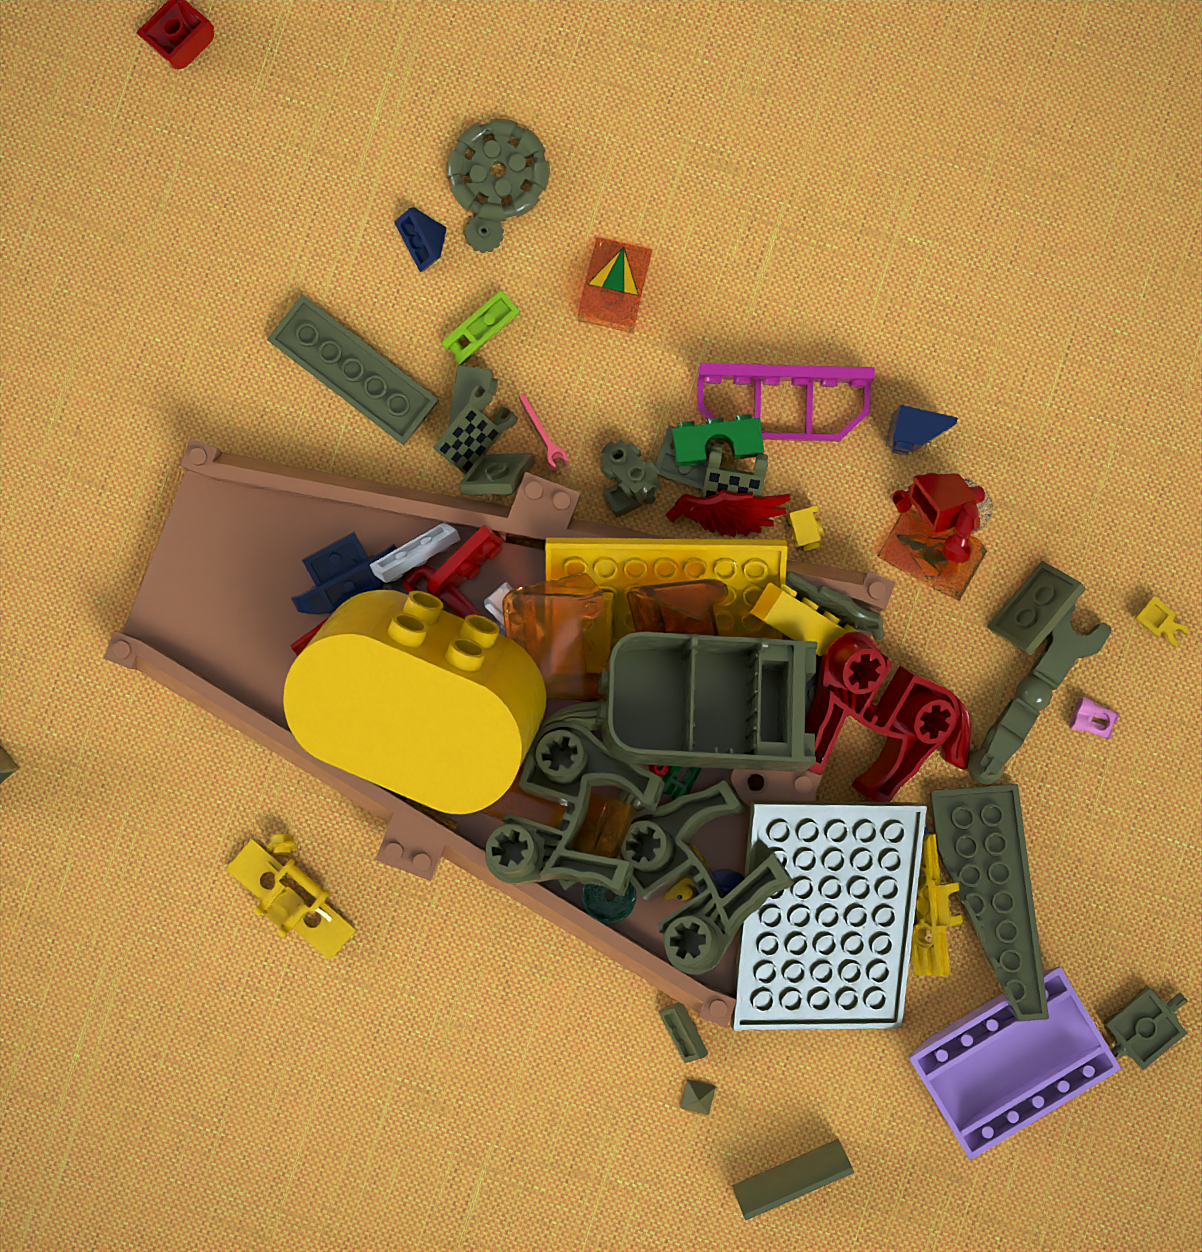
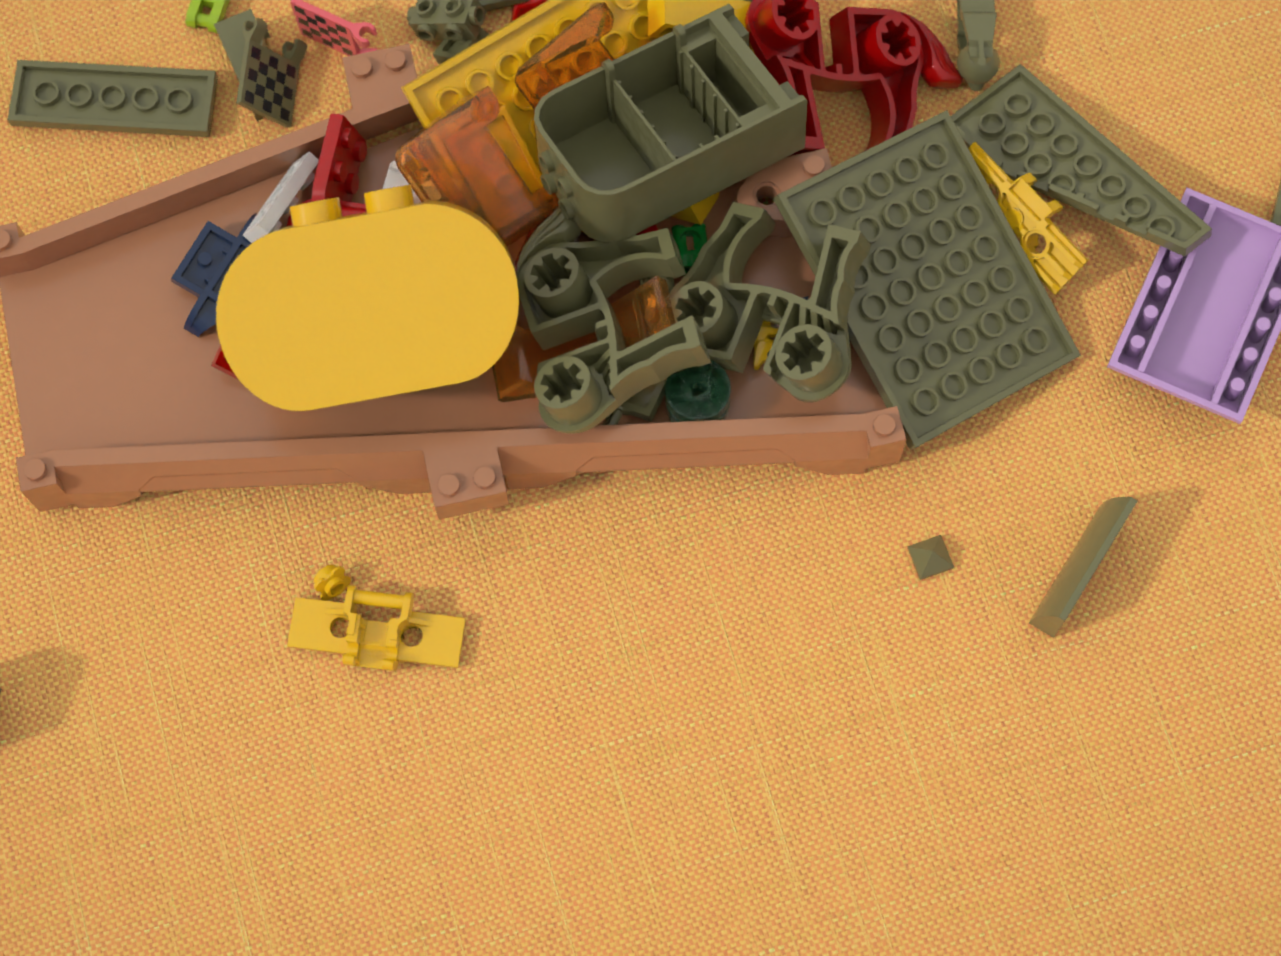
camera: 30 degrees left, 15 degrees down
(496, 474) = (324, 87): olive plate -> none
(683, 1032) = (869, 498): olive plate -> none

